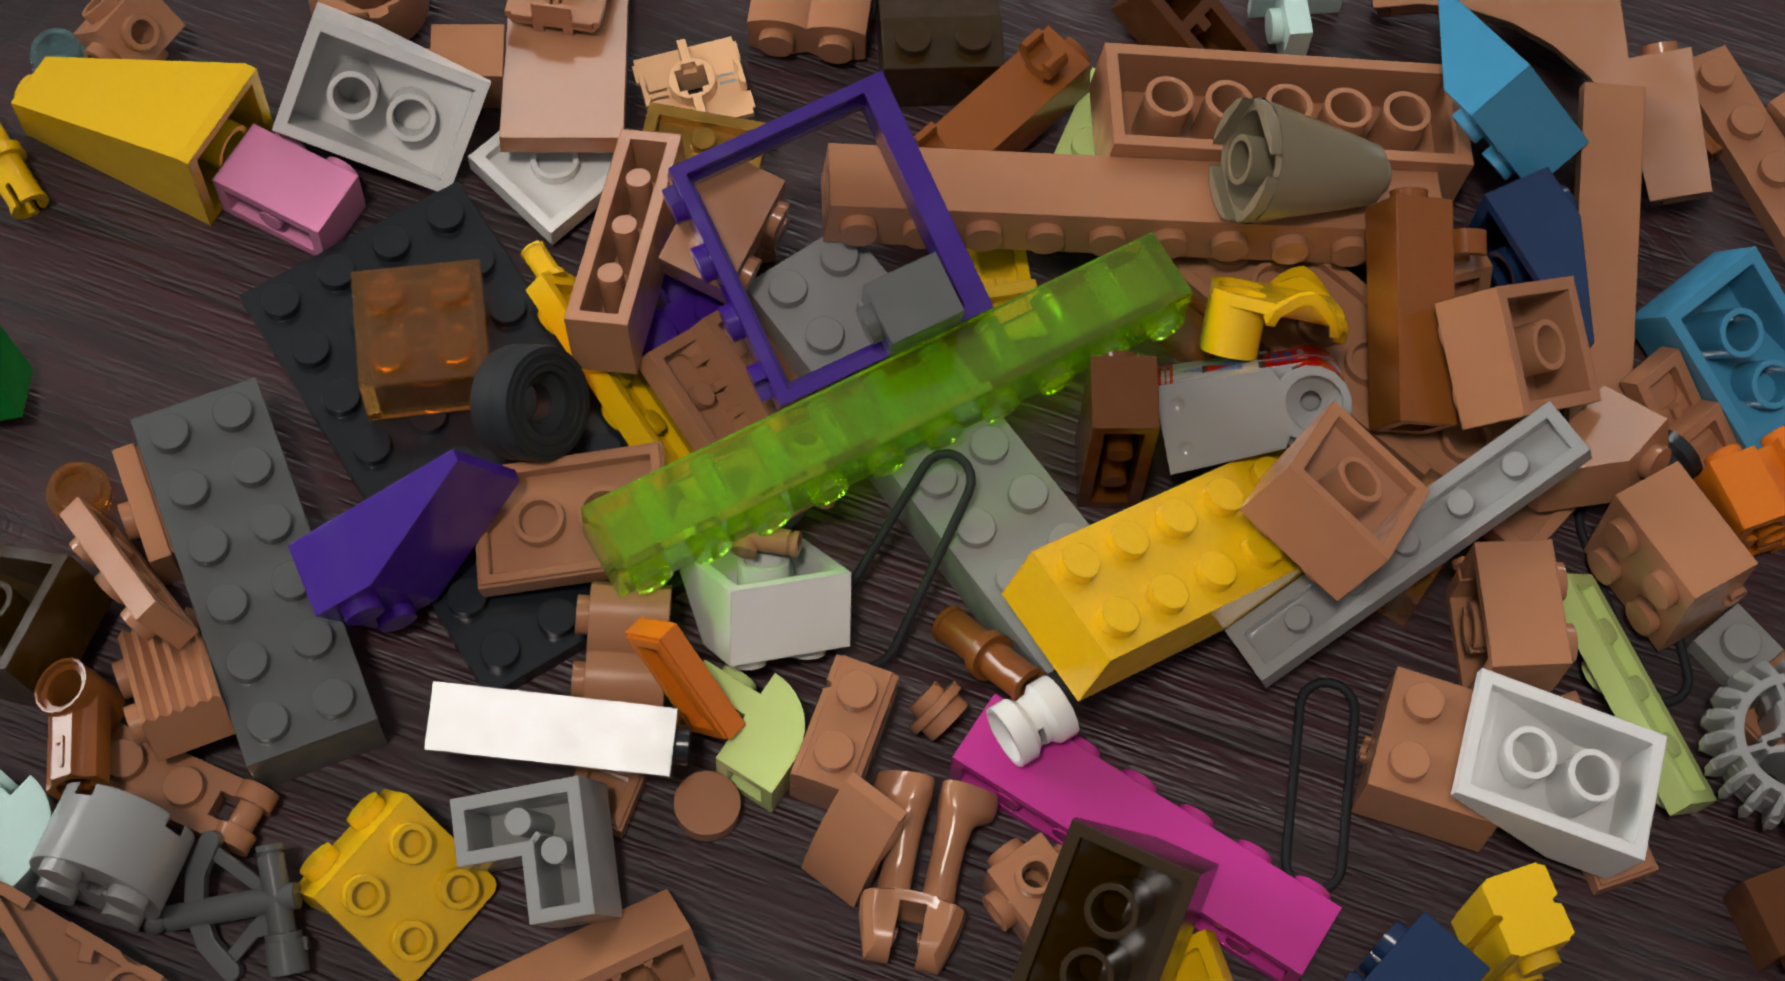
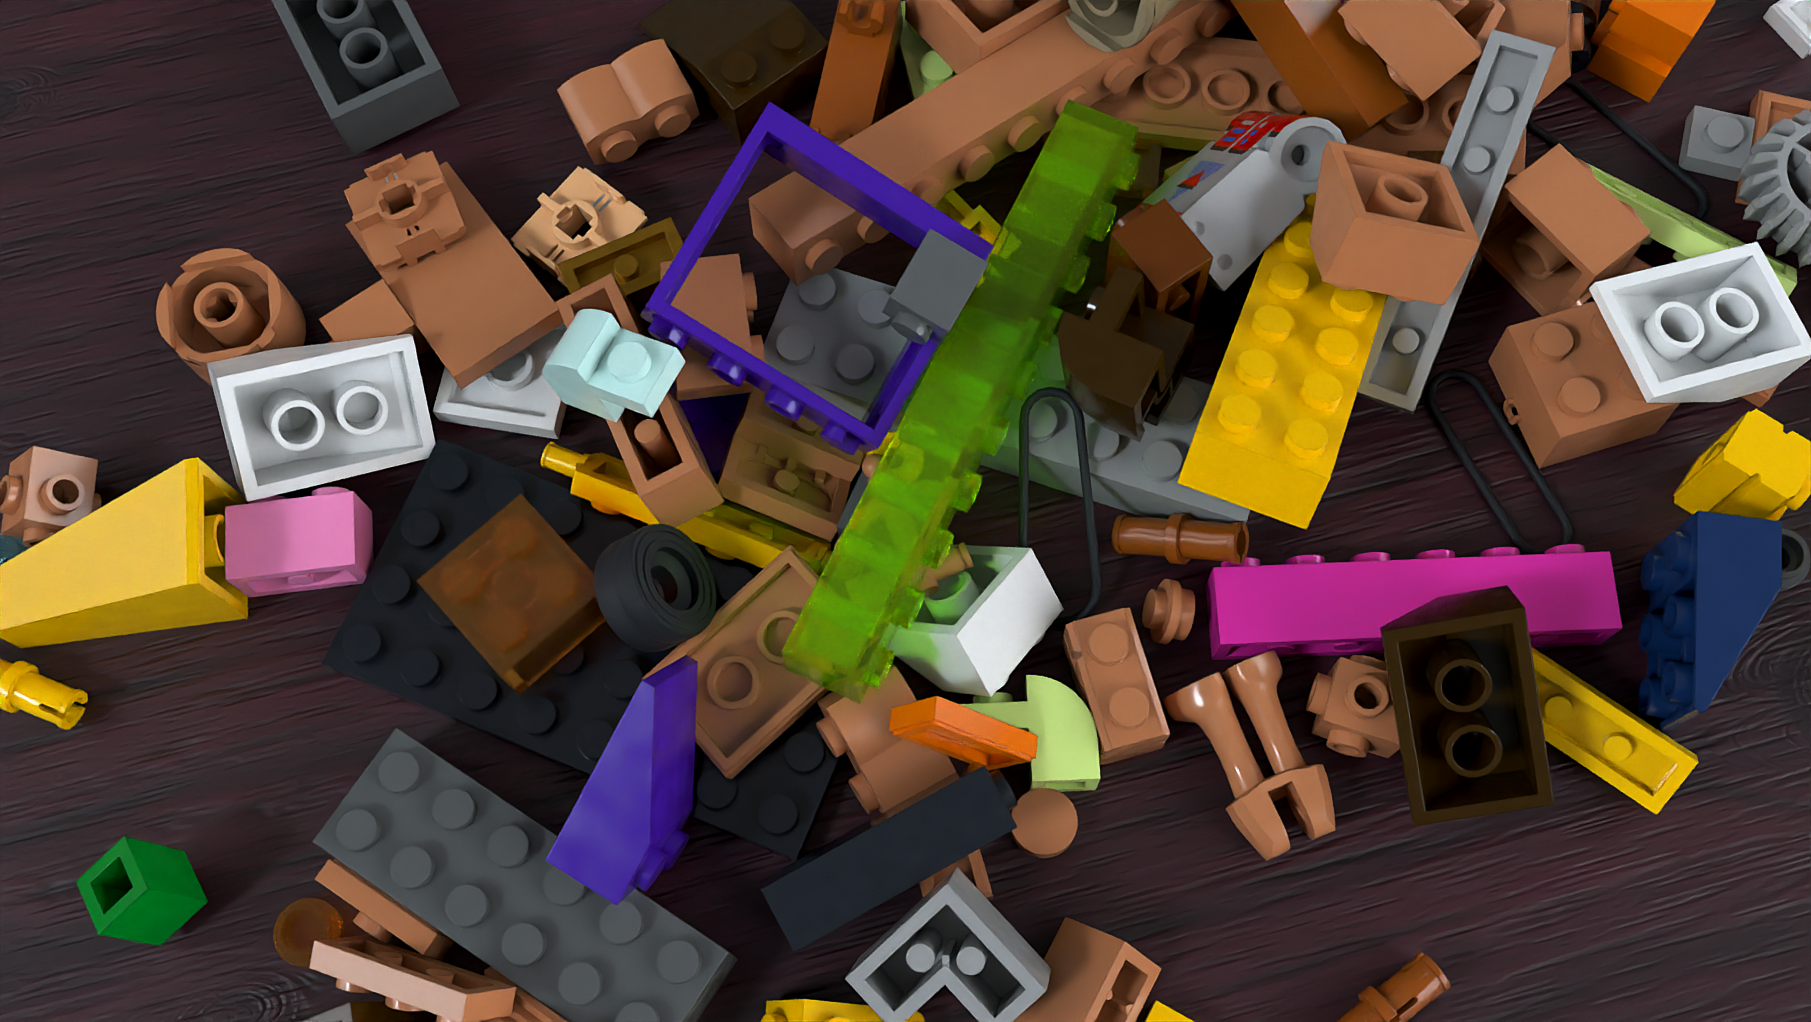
camera: 25 degrees left, 5 degrees up
(612, 200) = (610, 368): none -> light aqua brick
(853, 839) = (1196, 768): nougat slope -> none
(1032, 721) = (1270, 570): white wheel -> none
(1033, 465) = (1124, 356): none -> dark brown brick
(1242, 306) = (1174, 119): yellow piece -> none
(1669, 557) = (1635, 100): nougat brick -> none

